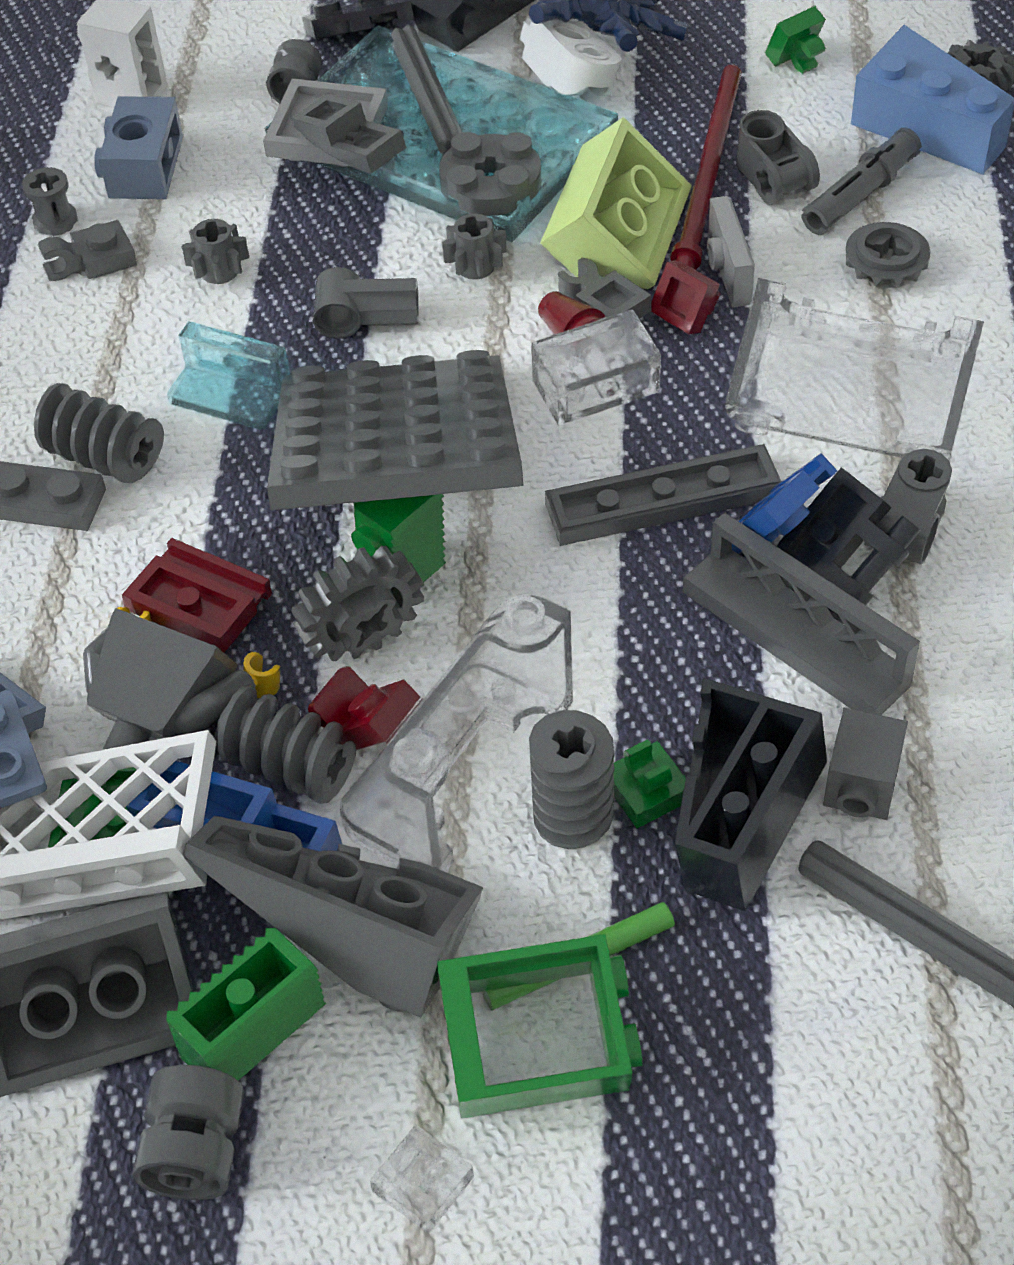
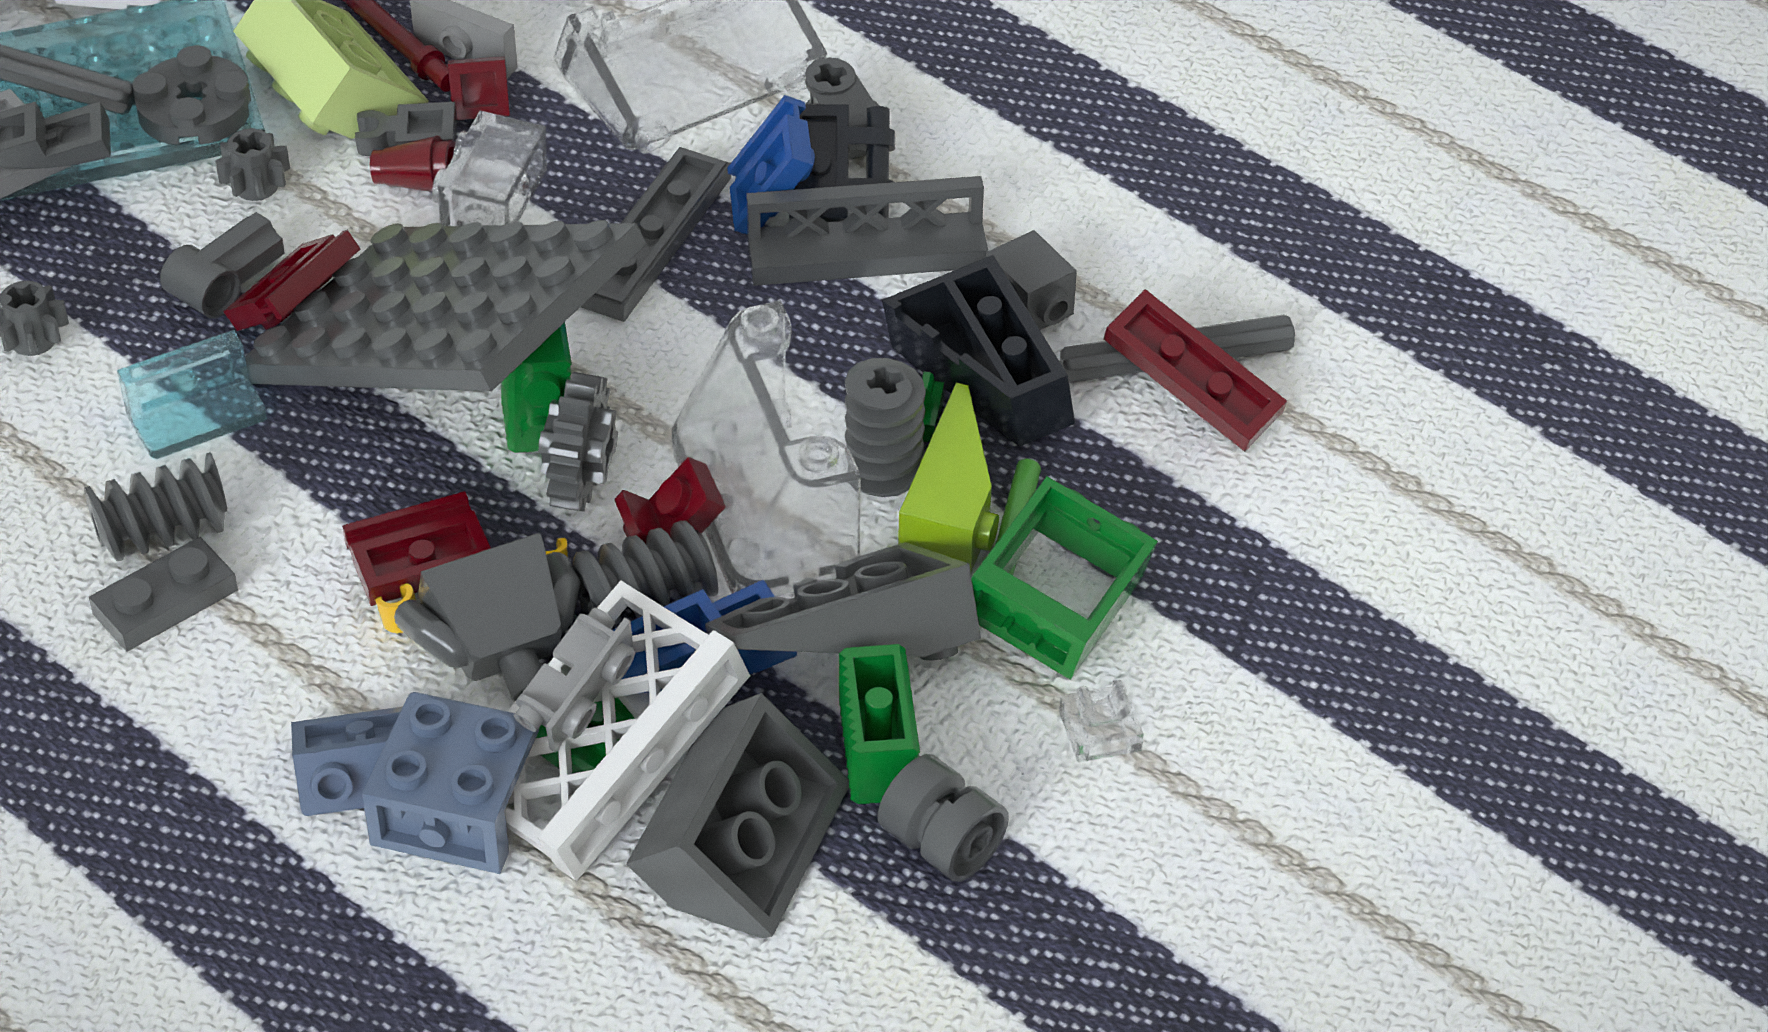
camera: 55 degrees left, 5 degrees down
(50, 784) = (595, 658): none -> light grey hinge
(377, 343) = (291, 281): none -> dark red plate
(569, 878) = (951, 489): none -> lime slope
(886, 957) = (1195, 370): none -> dark red plate

